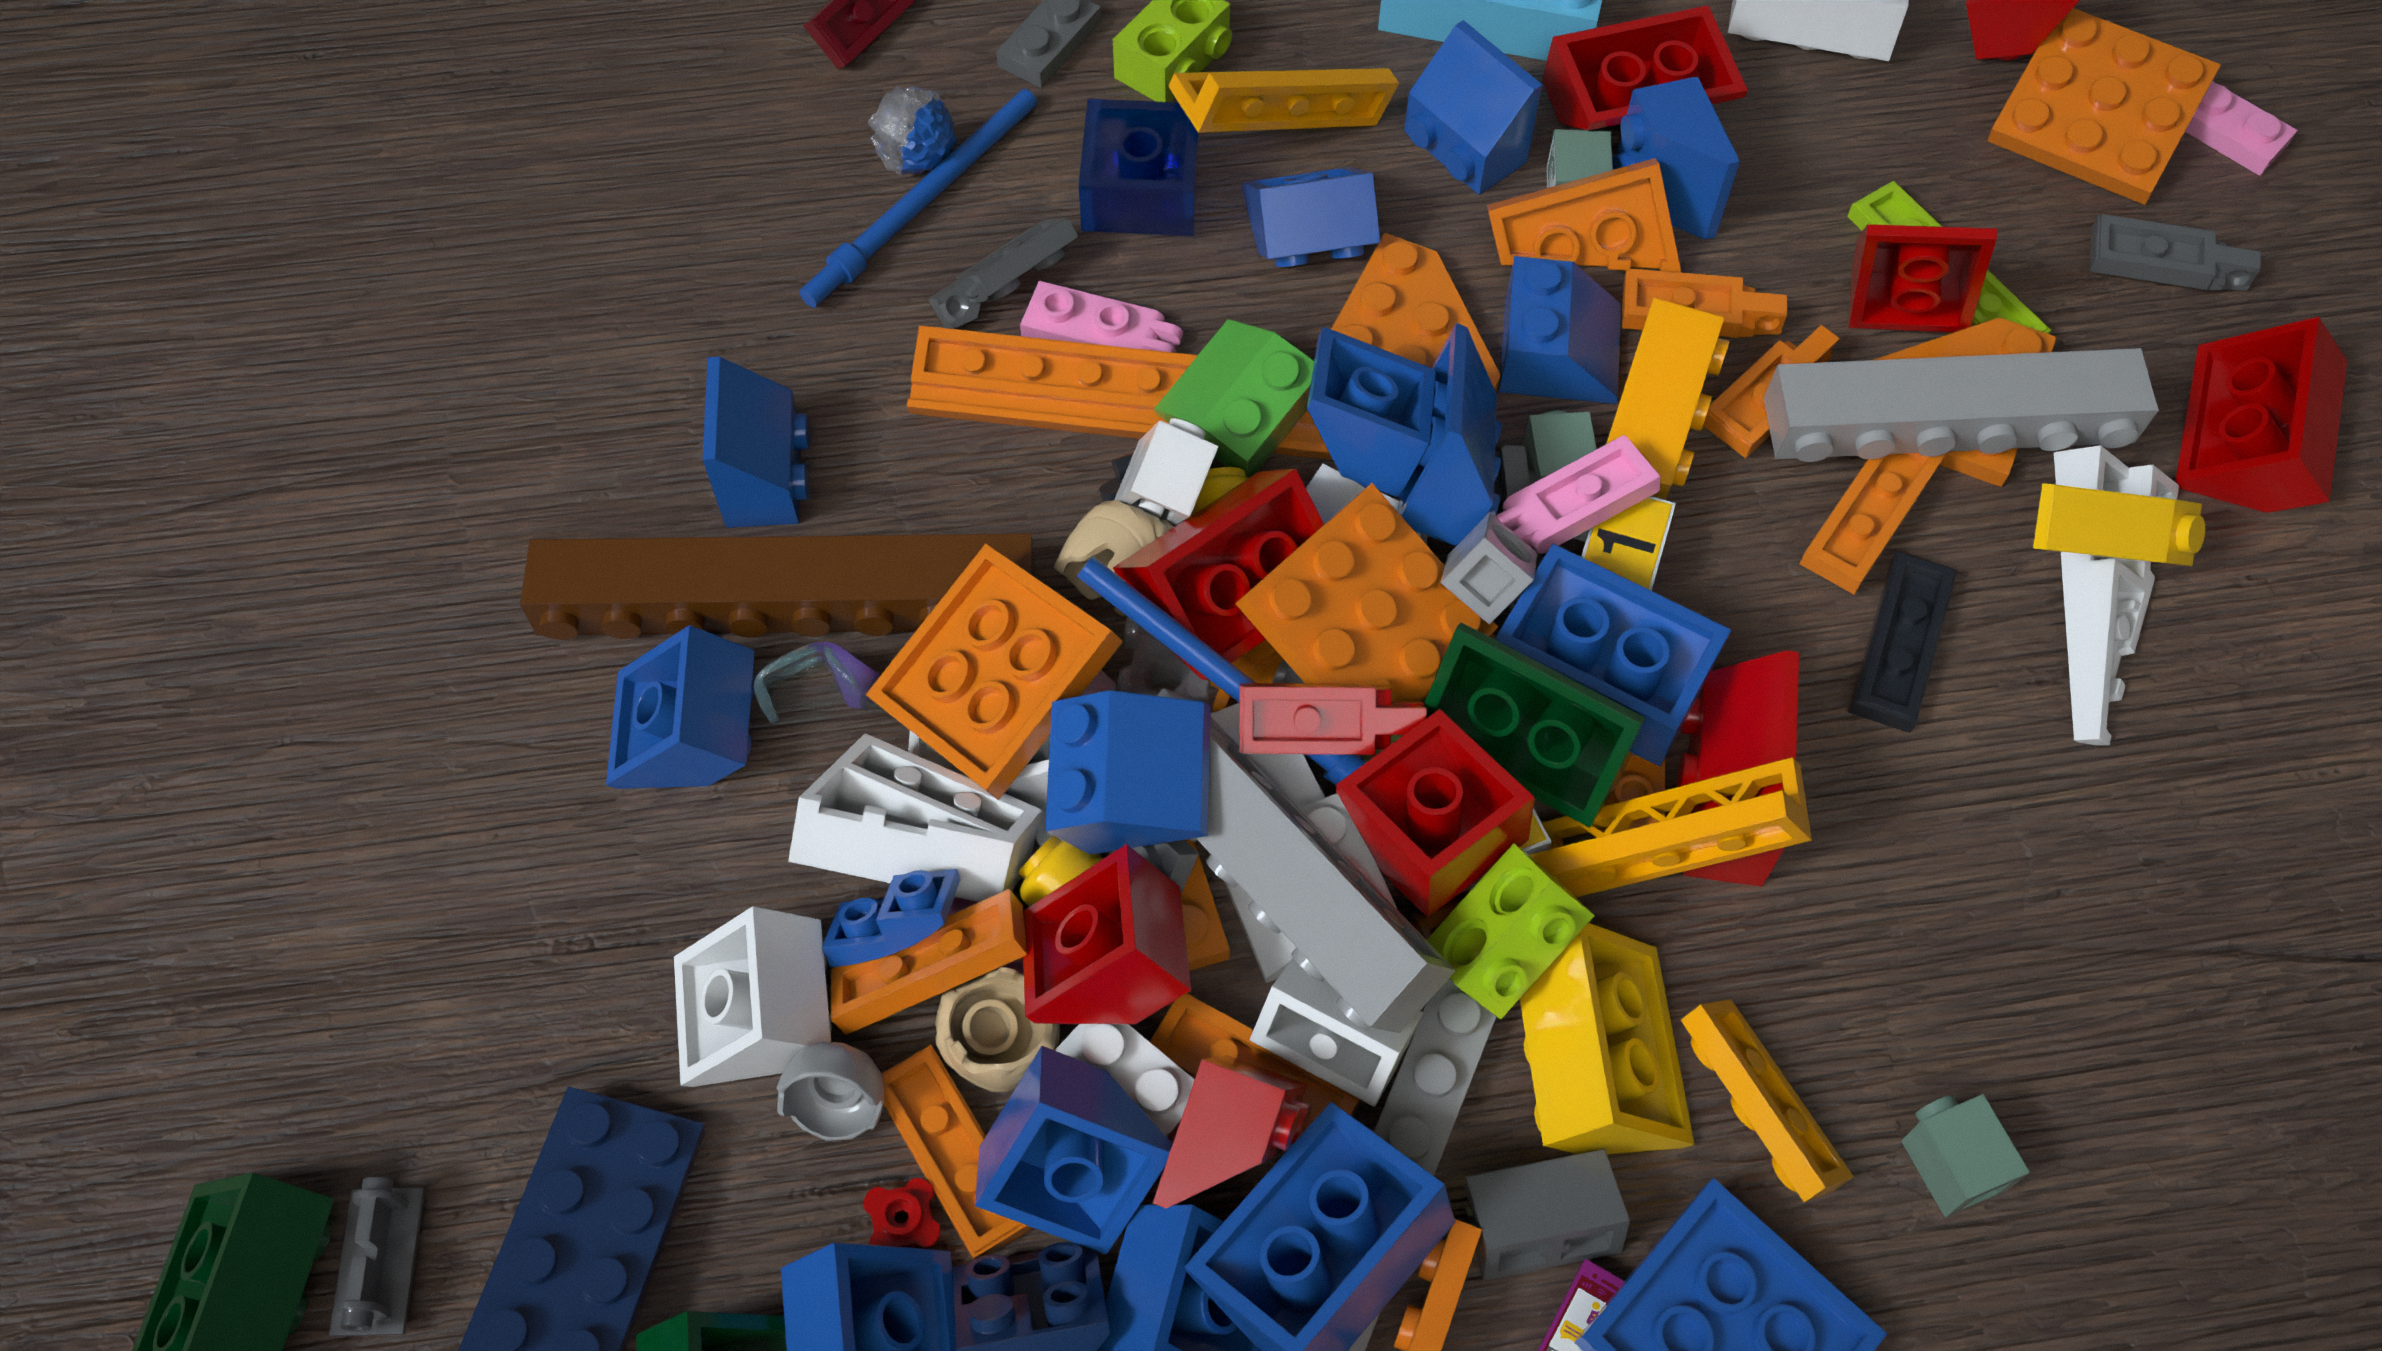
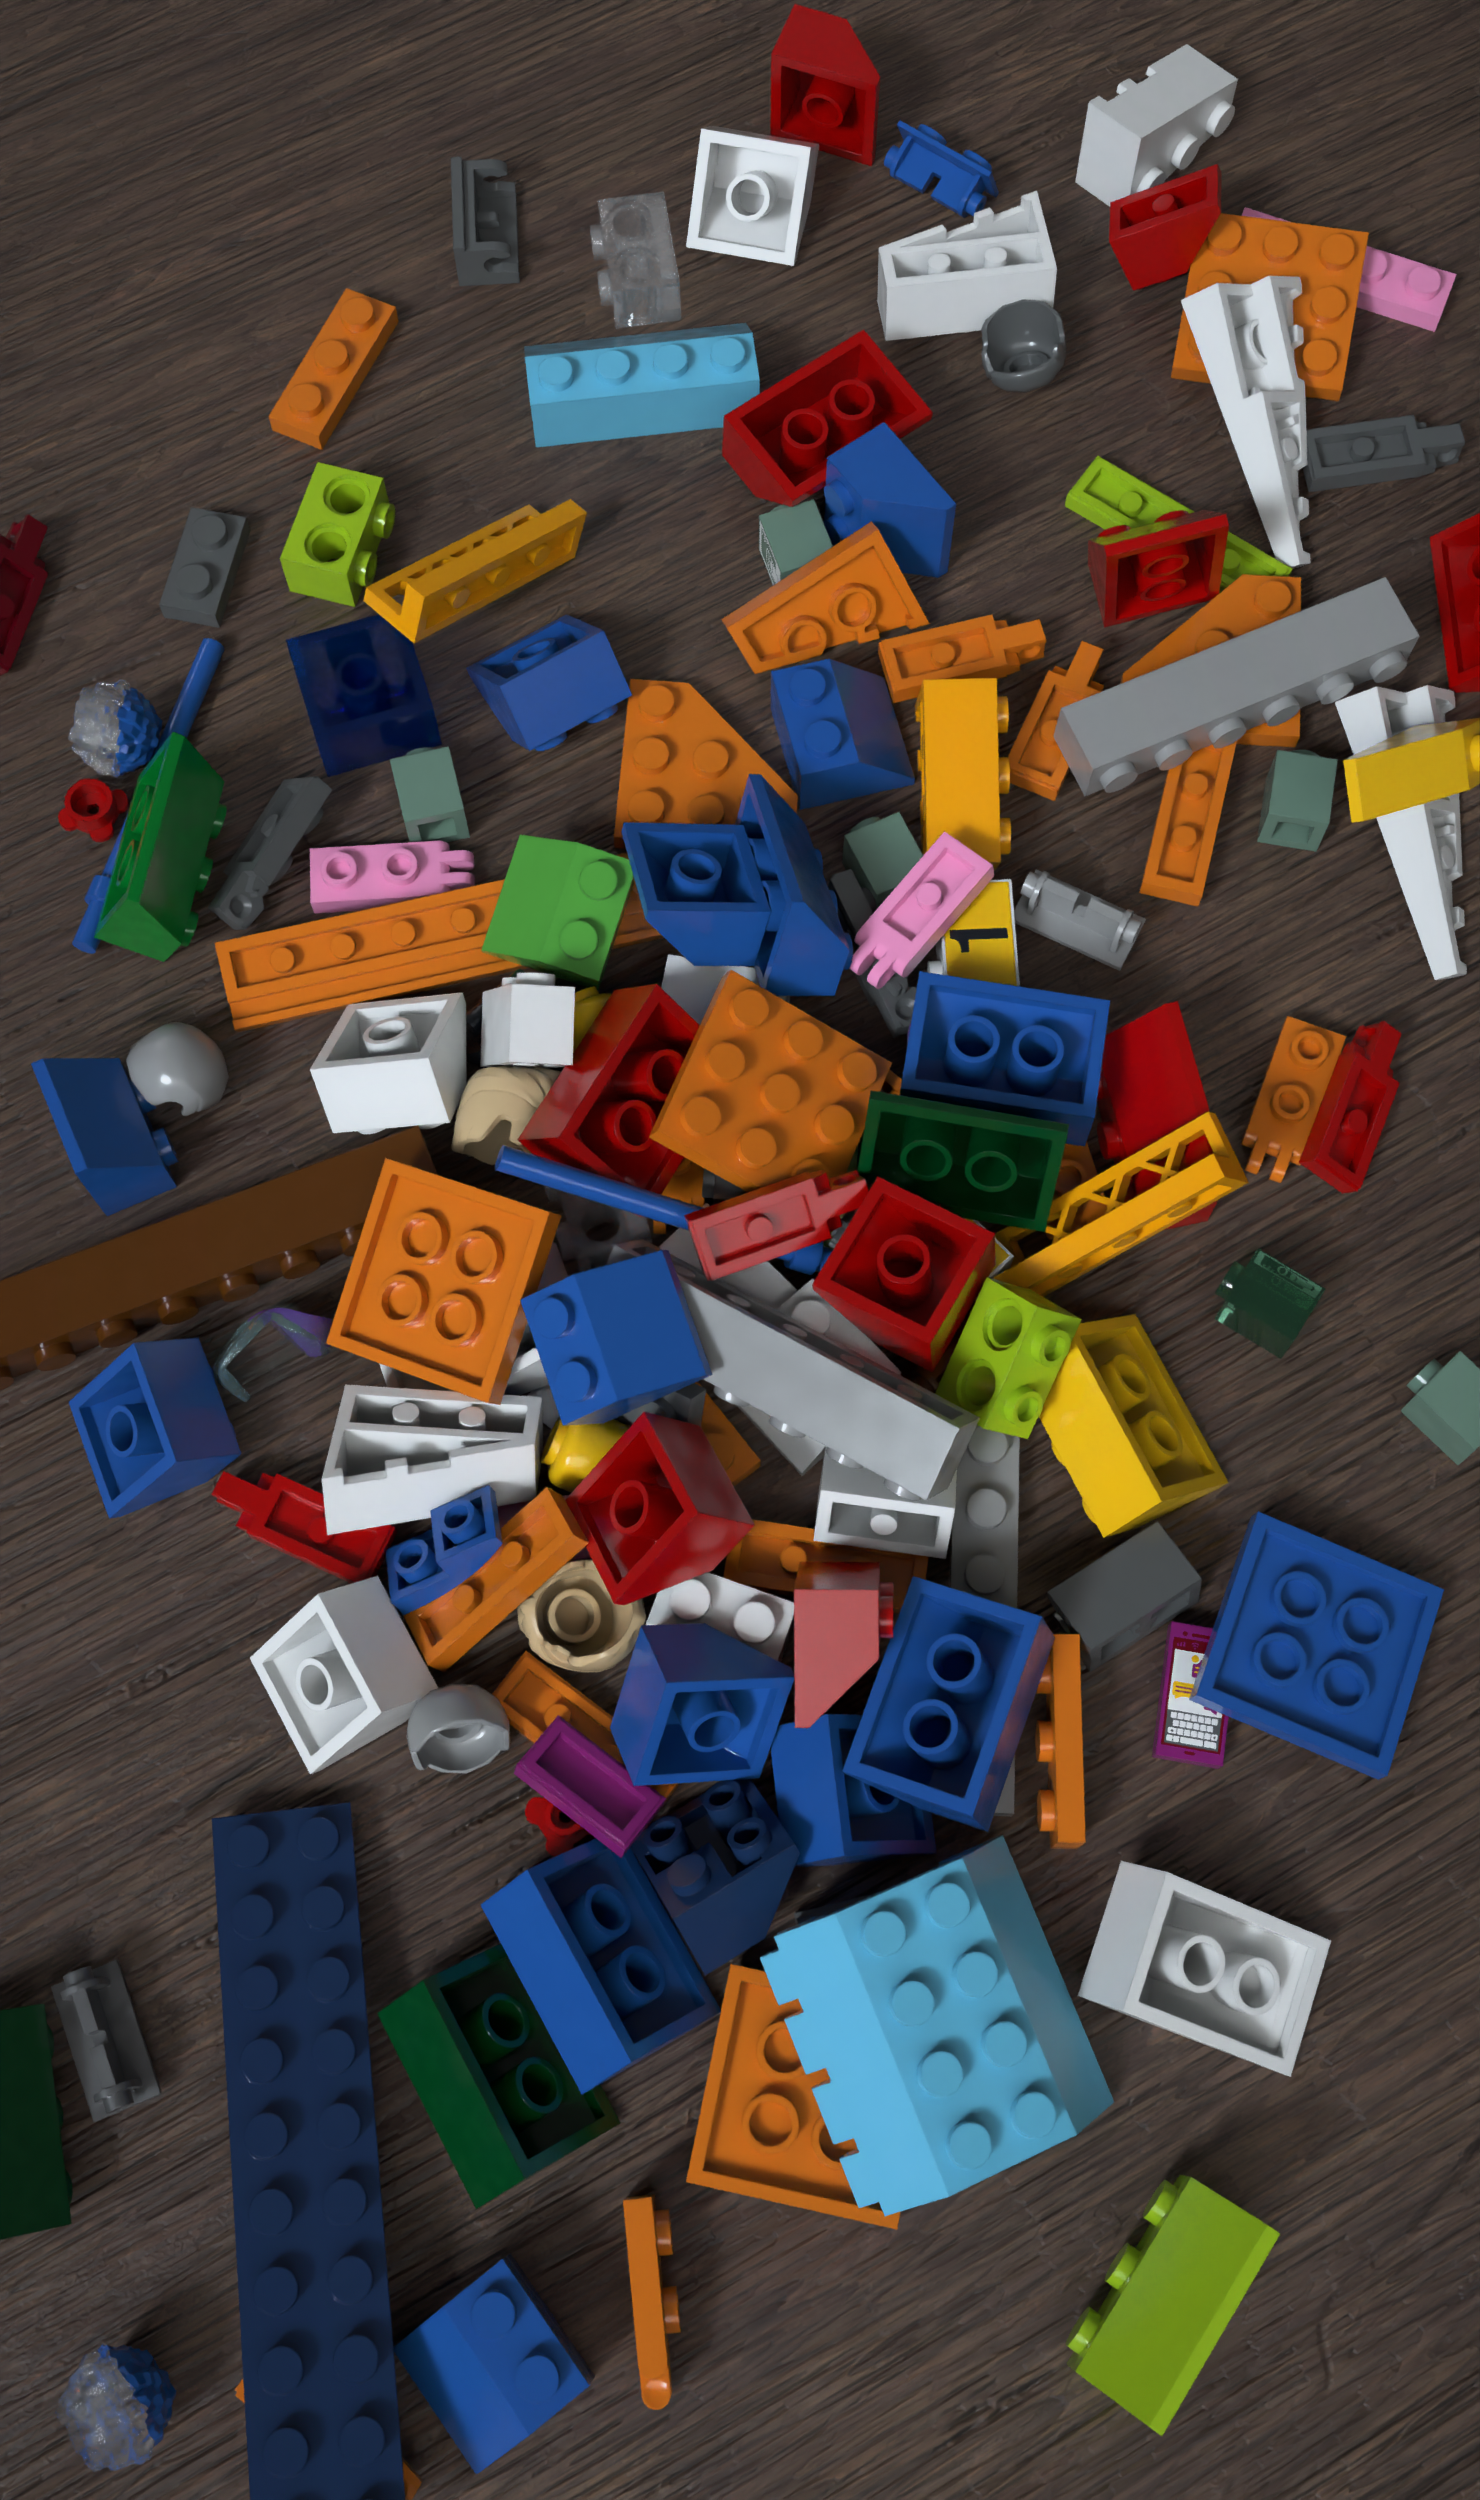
camera: 20 degrees left, 10 degrees up
(760, 840) = (295, 1523): none -> red hinge
(844, 417) = (179, 1067): none -> light grey hair
(866, 191) = (89, 794): none -> red plate
(909, 239) = (163, 853): none -> green slope
(934, 1194) = (588, 1786): none -> magenta tile
(1031, 478) = (394, 1064): none -> white slope
(1163, 270) = (430, 795): none -> sand green brick
(1473, 109) = (671, 519): blue slope -> none
(1489, 568) = (868, 1014): light grey brick -> none
(1729, 565) = (1077, 919): none -> light grey hinge
(1766, 1100) = (1277, 1421): light orange plate -> none
(1795, 980) = (1267, 1302): none -> clear green brick
(1854, 69) = (1023, 346): none -> dark grey hair
(1888, 797) = (1290, 1095): none -> orange hinge
(1903, 642) = (1256, 937): black tile -> none
(1948, 829) = (1353, 1109): none -> red hinge
(1986, 529) = (1297, 800): none -> sand green brick
(2068, 142) = (1250, 359): none -> white wedge

